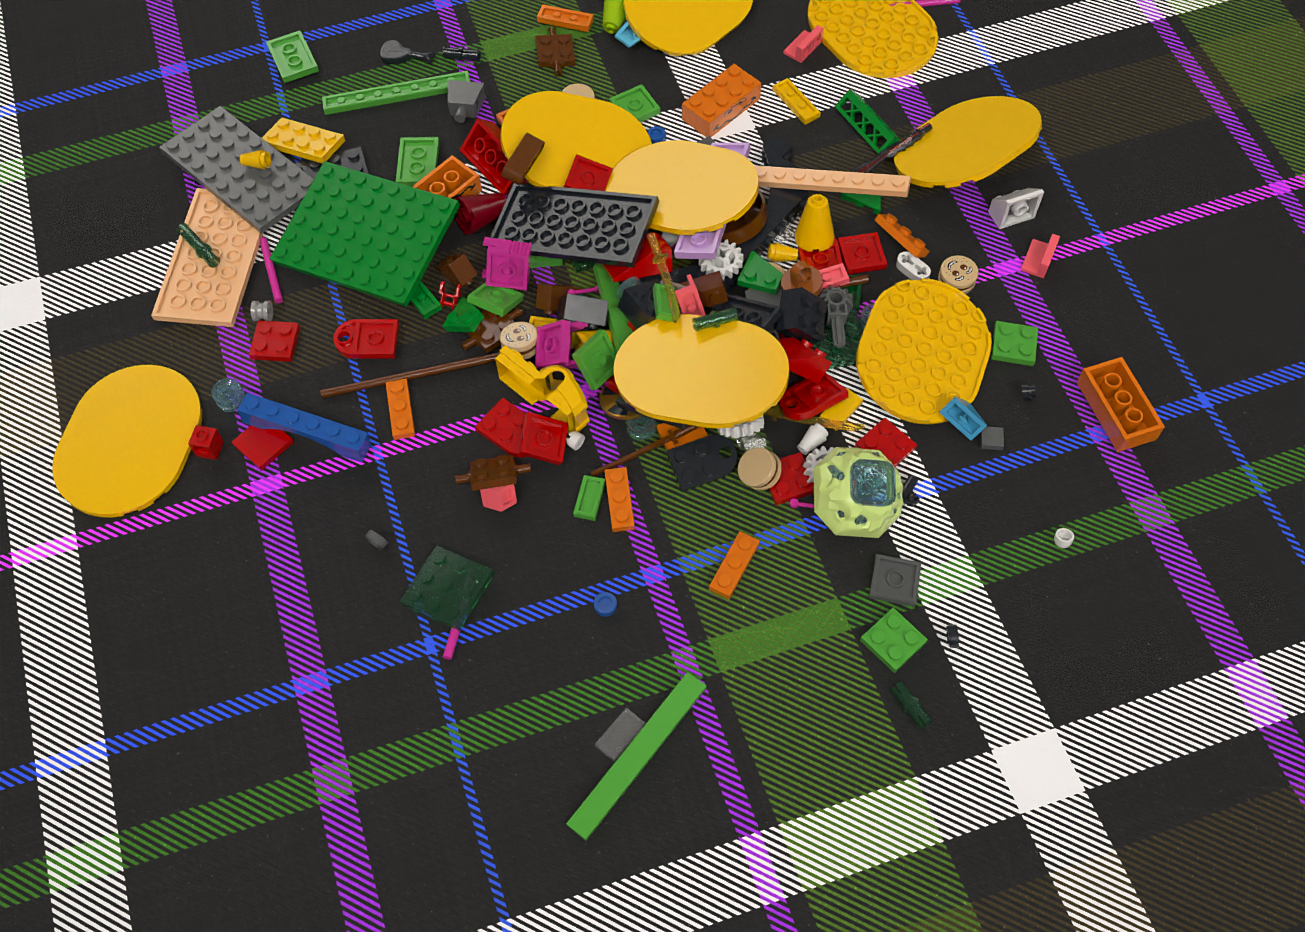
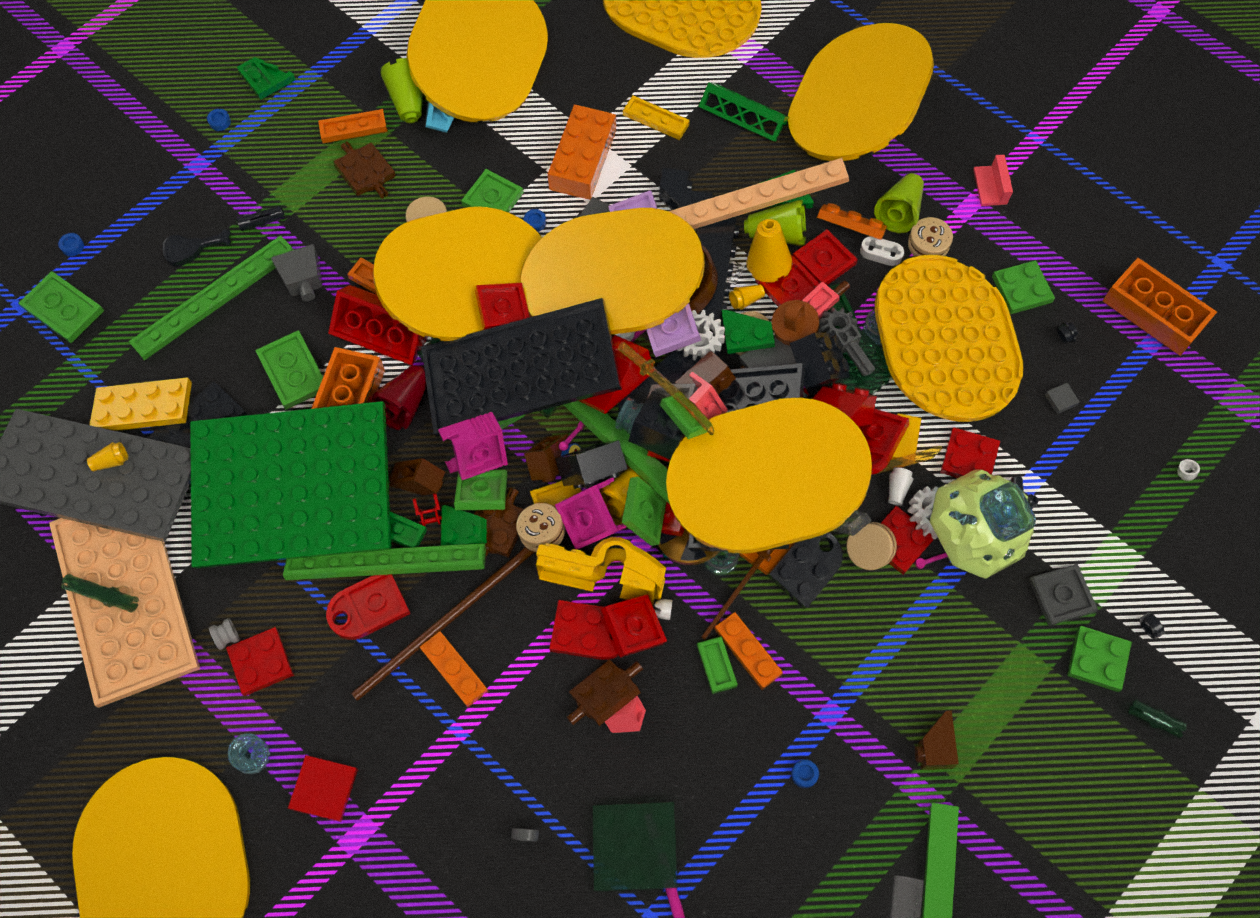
camera: 30 degrees left, 5 degrees up
(206, 442) = (260, 824): red brick -> none
(271, 270) = (201, 579): dark pink bar -> none
(325, 20) = (71, 244): none -> blue tile
(336, 436) = (333, 752): blue arch -> none
(401, 315) = (388, 562): none -> bright green tile
(523, 159) = (425, 319): reddish brown beam -> none
(715, 319) = (751, 411): clear green pin -> none
(718, 633) = (938, 746): none -> reddish brown slope
(734, 565) = (904, 661): orange plate -> none
(804, 44) = (625, 49): coral panel -> none
(848, 213) = (789, 215): none -> lime cone
(892, 150) = (787, 134): black sword -> none
(949, 237) = (901, 204): none -> lime cone
(963, 417) = (1029, 391): dark azure slope -> none
(1015, 207) = (941, 140): white slope -> none

